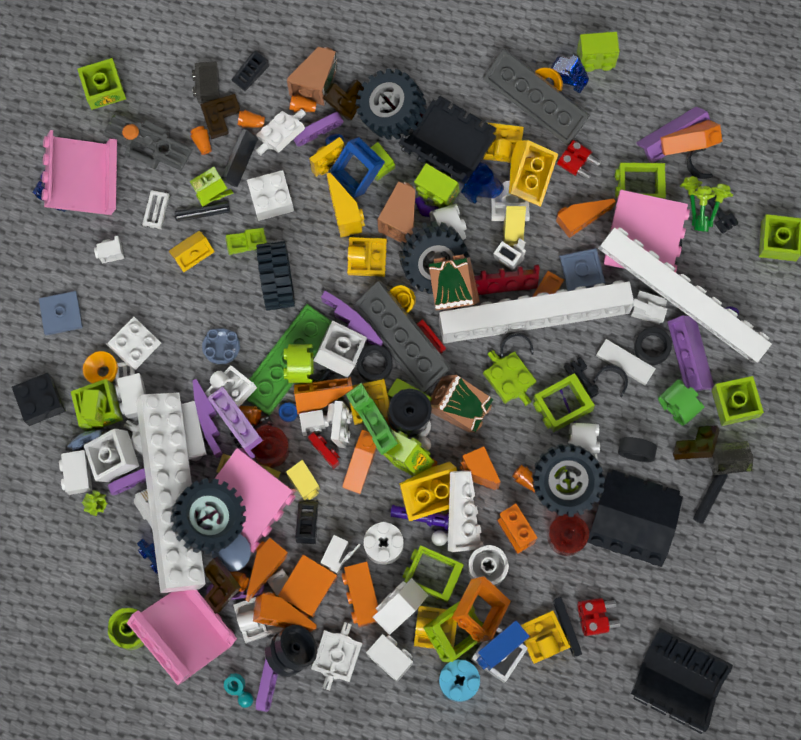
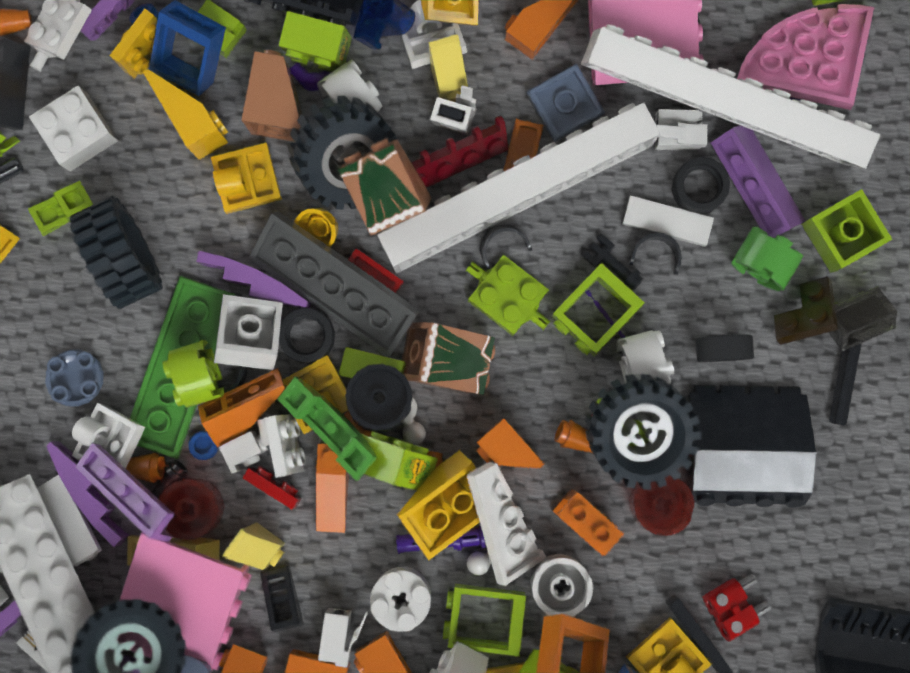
camera: 15 degrees left, 10 degrees up
(748, 286) = (813, 55): none -> bright pink plate

